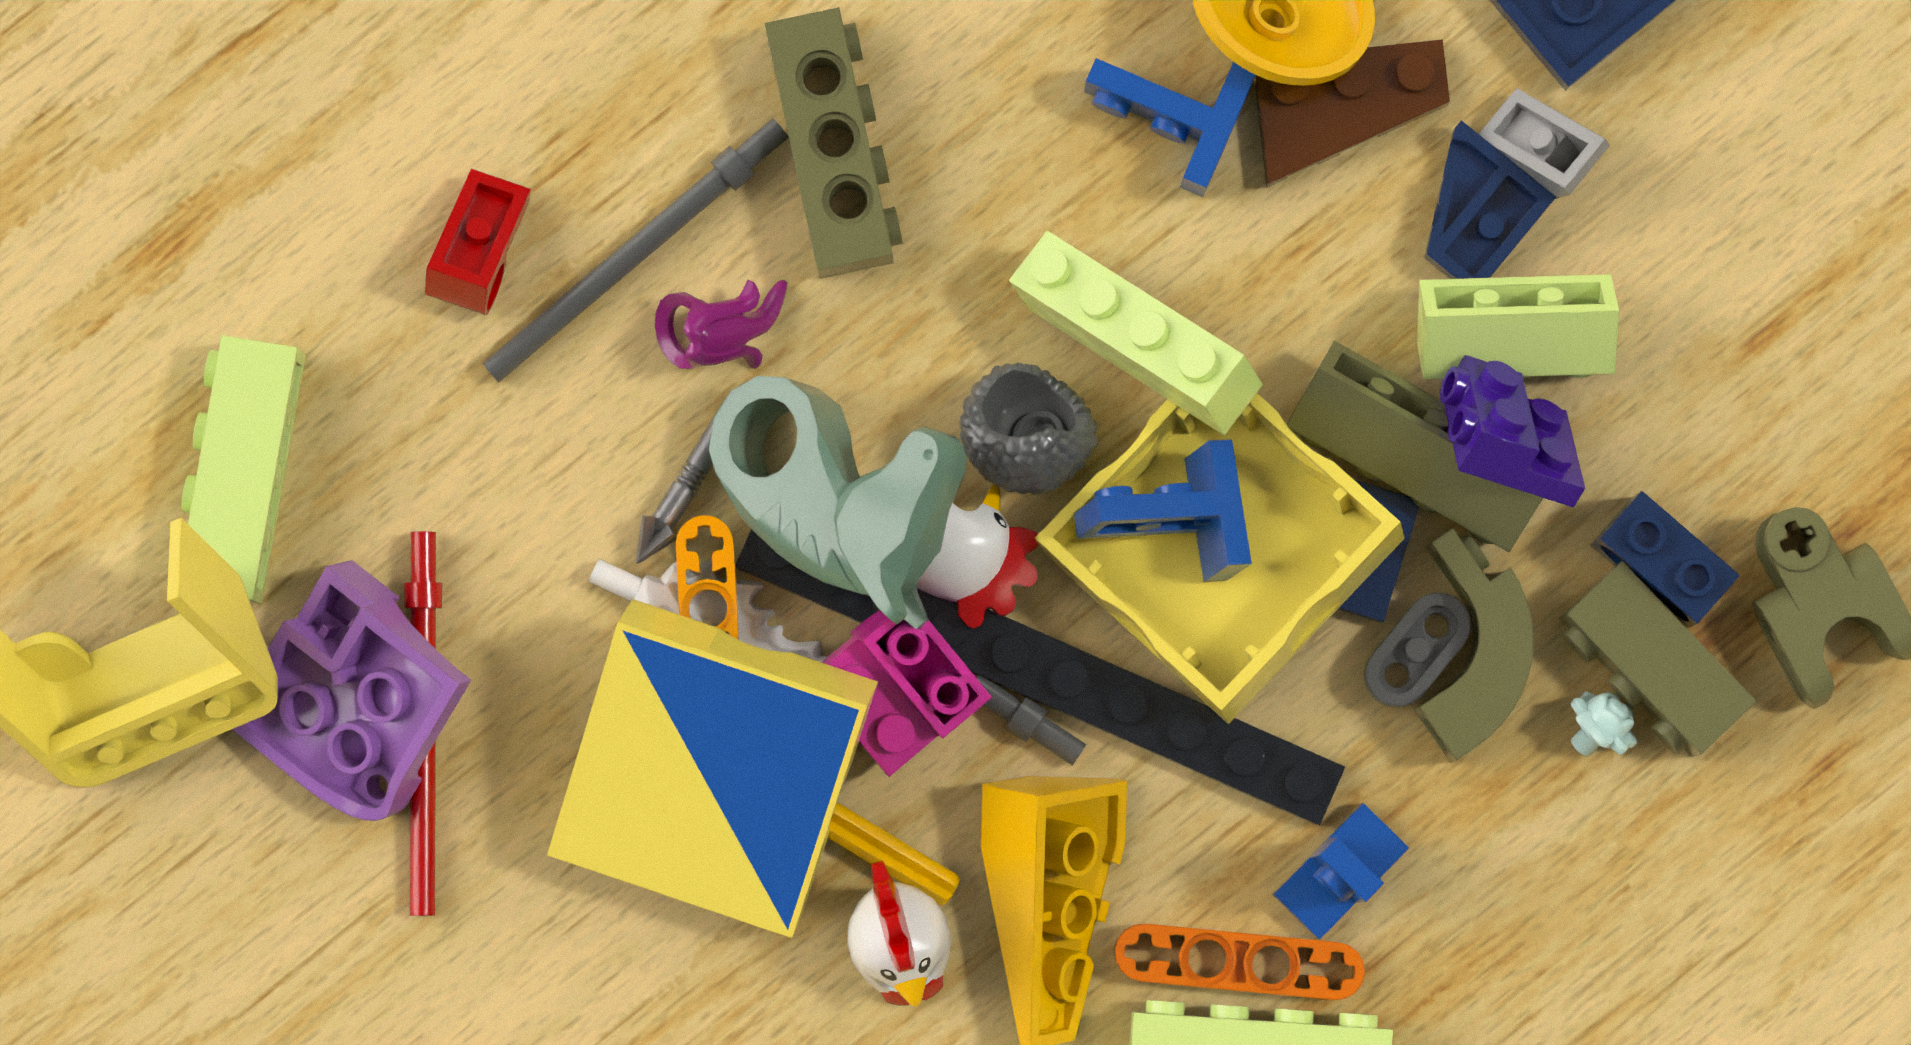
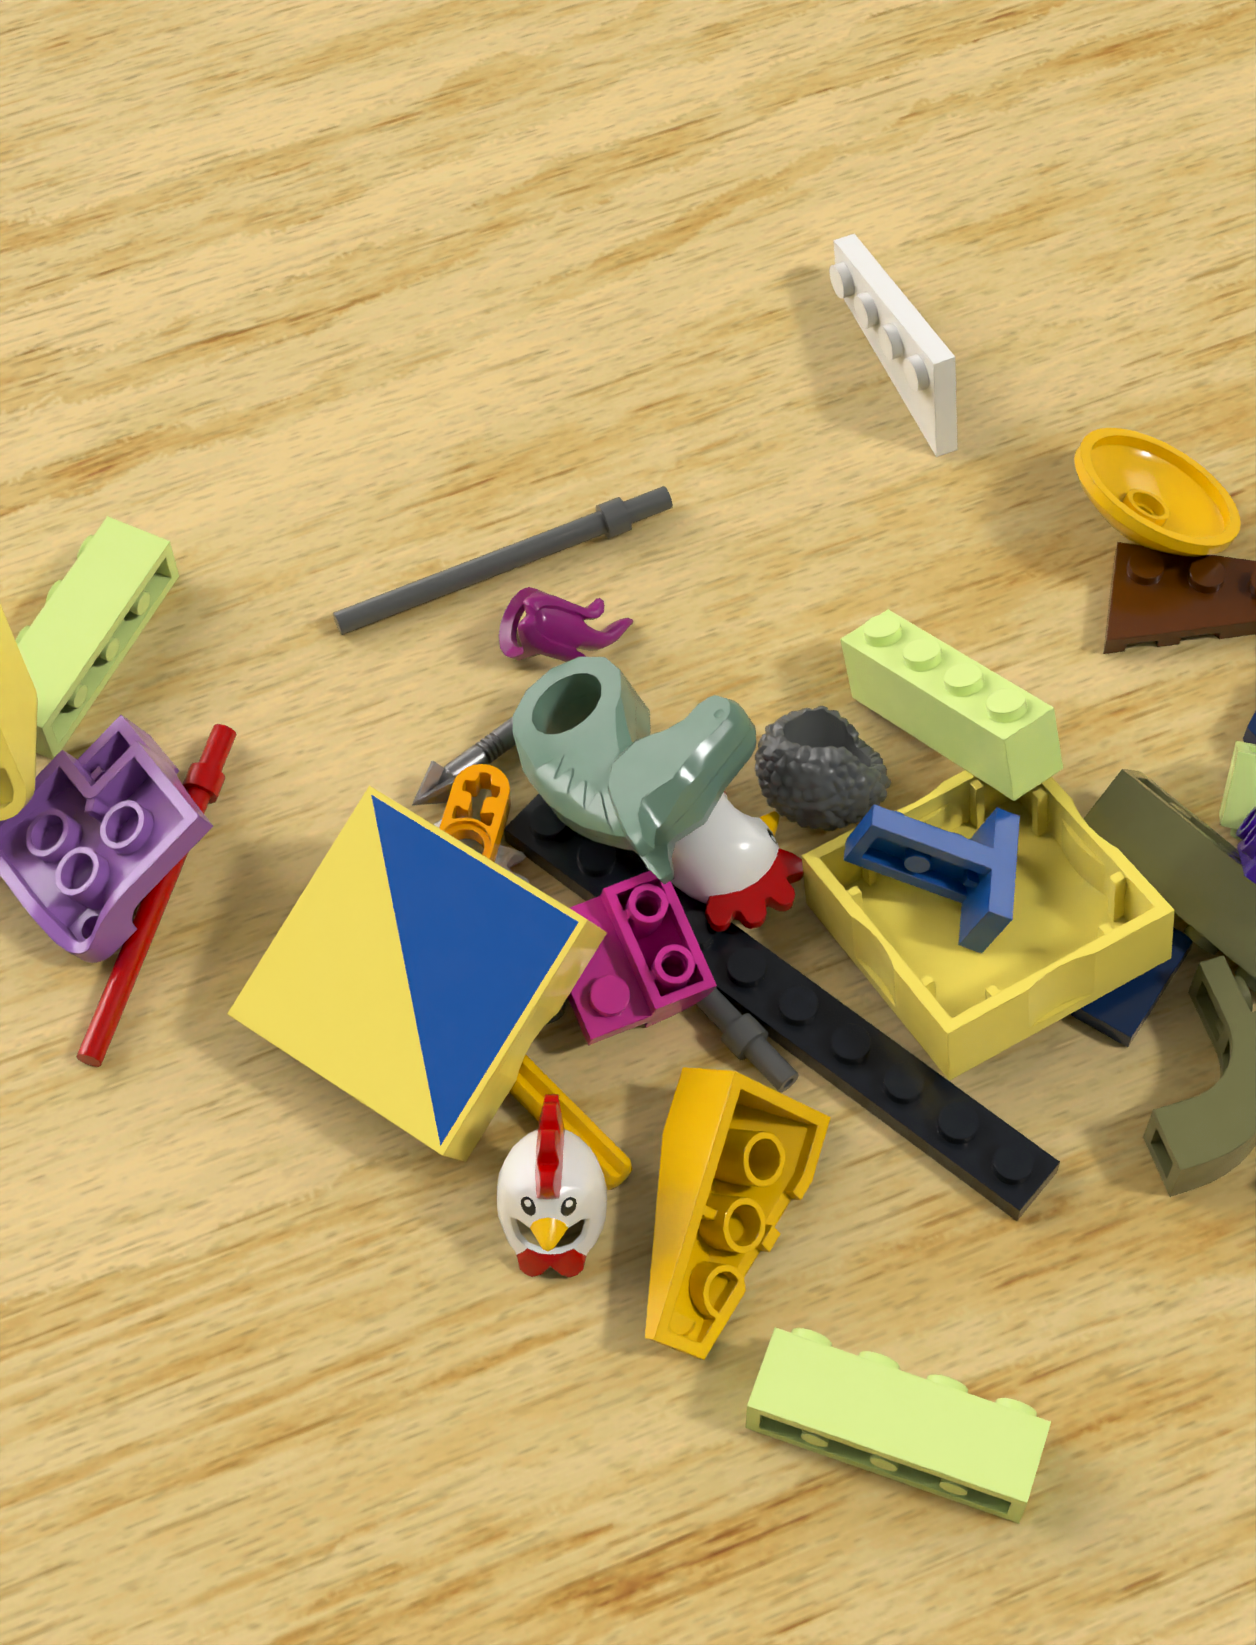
camera: 15 degrees right, 25 degrees down
(475, 242) = (352, 517): red plate -> none
(796, 49) = (708, 515): olive brick -> none
(1175, 114) = (1034, 562): blue bracket -> none
(1238, 967) = (904, 1314): orange beam -> none
(1341, 871) = (1039, 1256): blue bracket -> none
(1416, 650) = (1156, 1075): dark grey plate -> none

